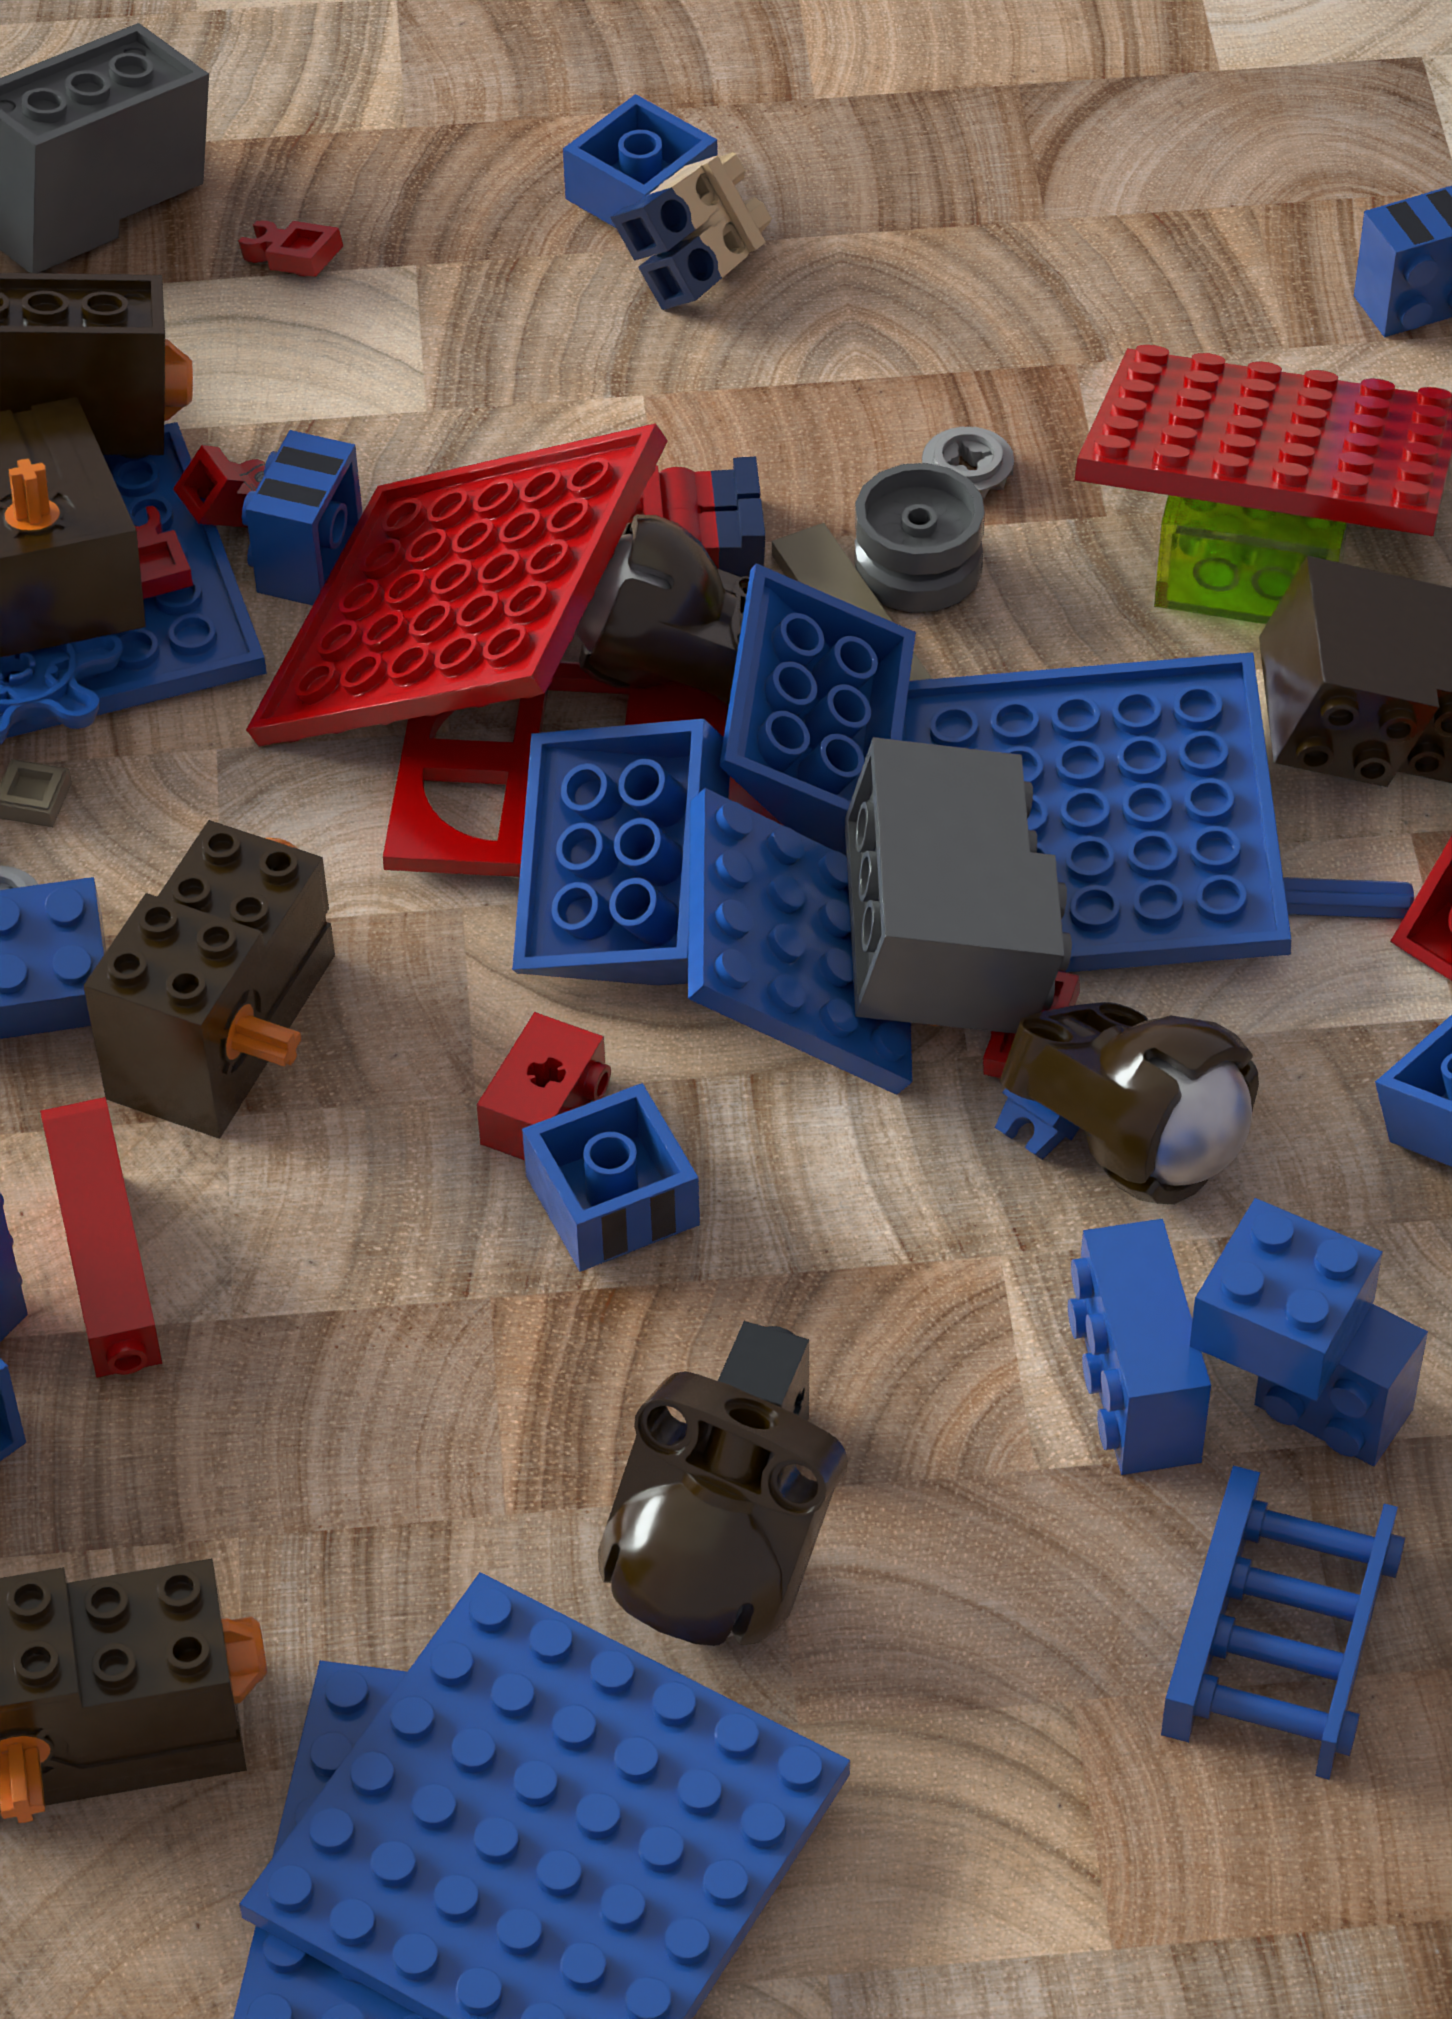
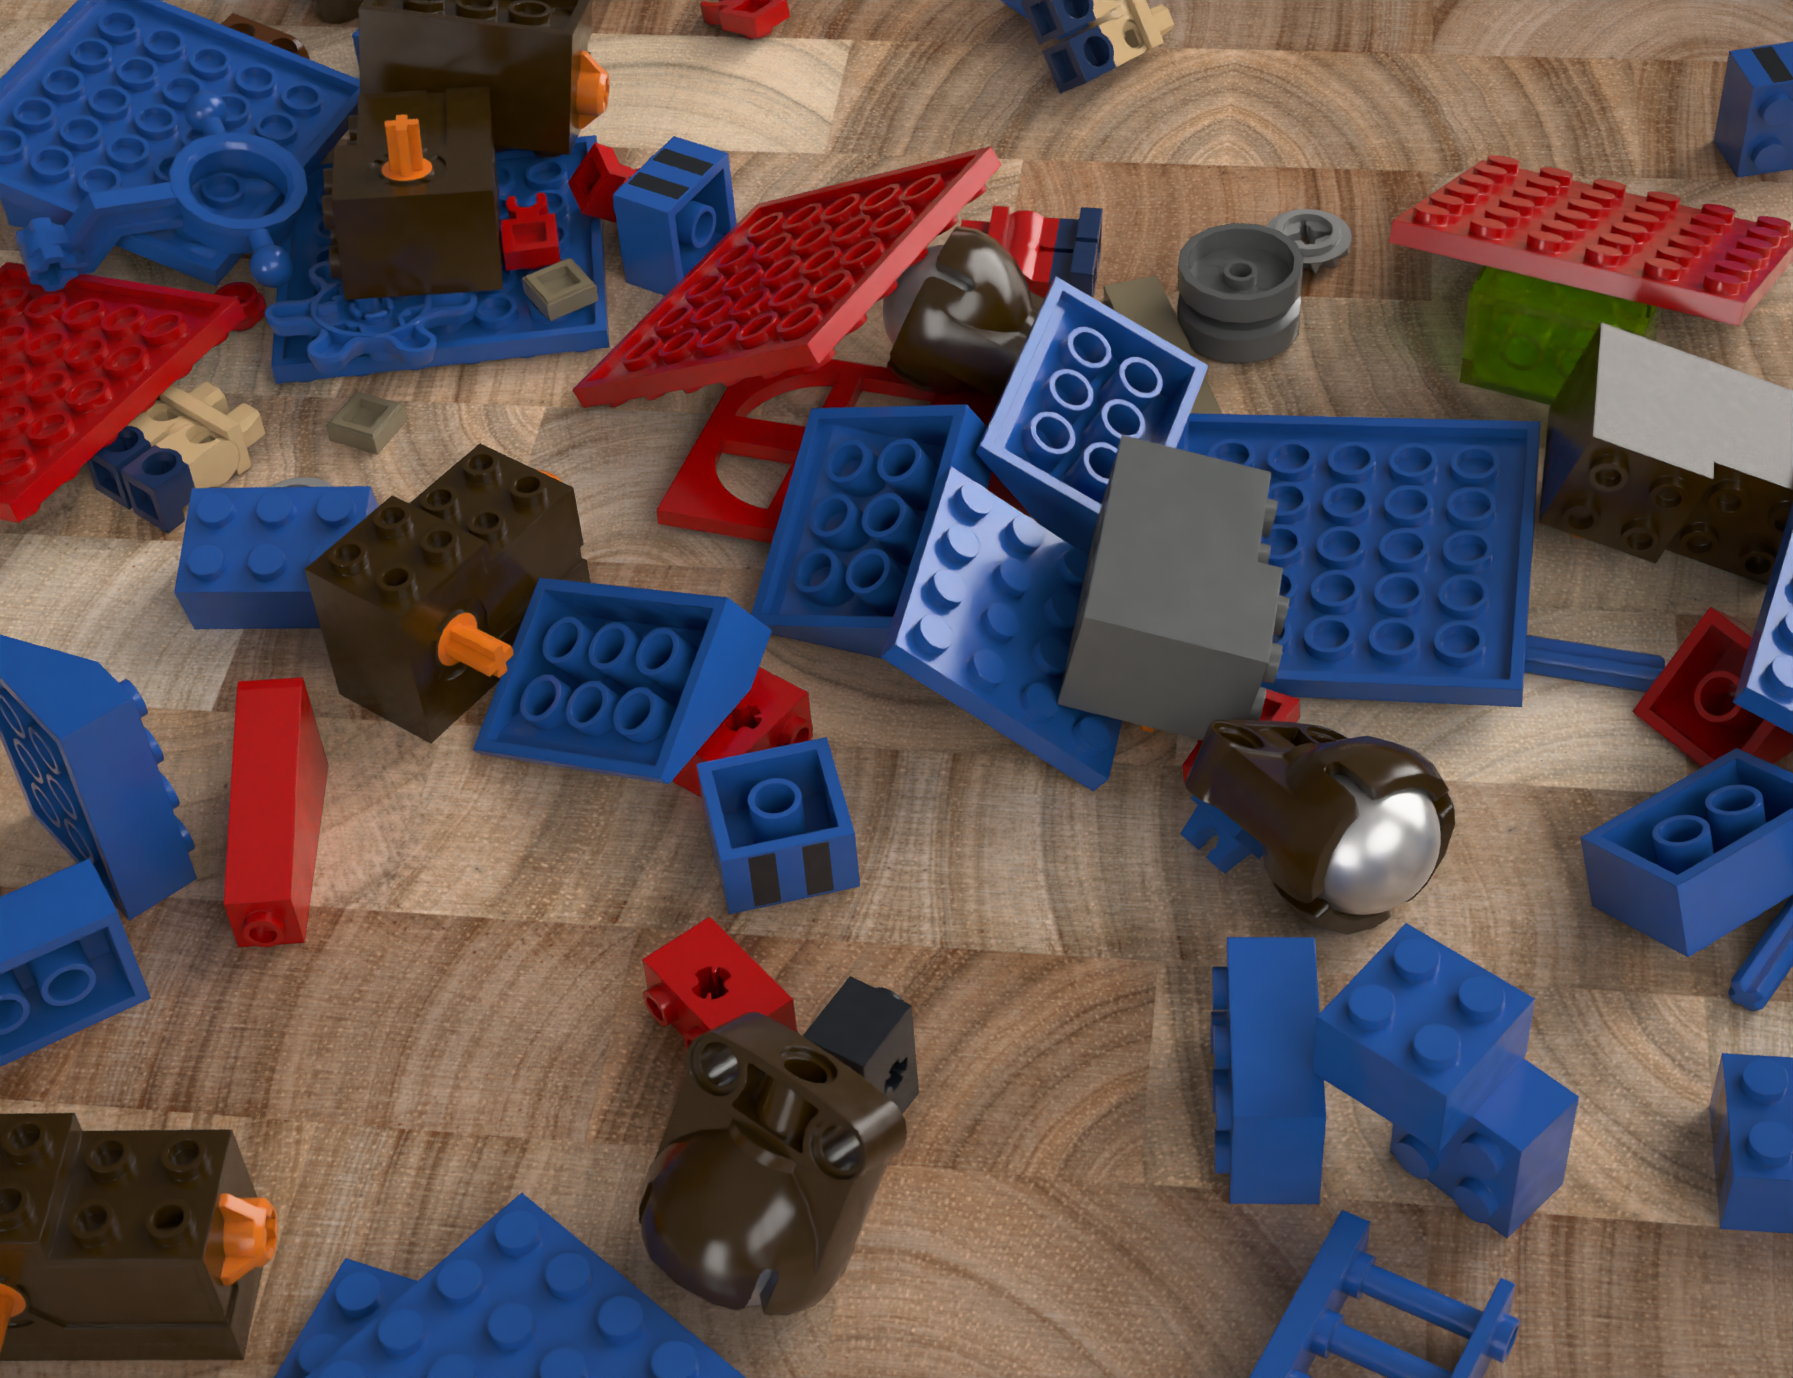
camera: 15 degrees right, 5 degrees down
(202, 616) = (560, 289): none -> dark tan tile
(412, 1051) = (621, 678): none -> blue slope
(598, 1357) = (708, 981): none -> red brick

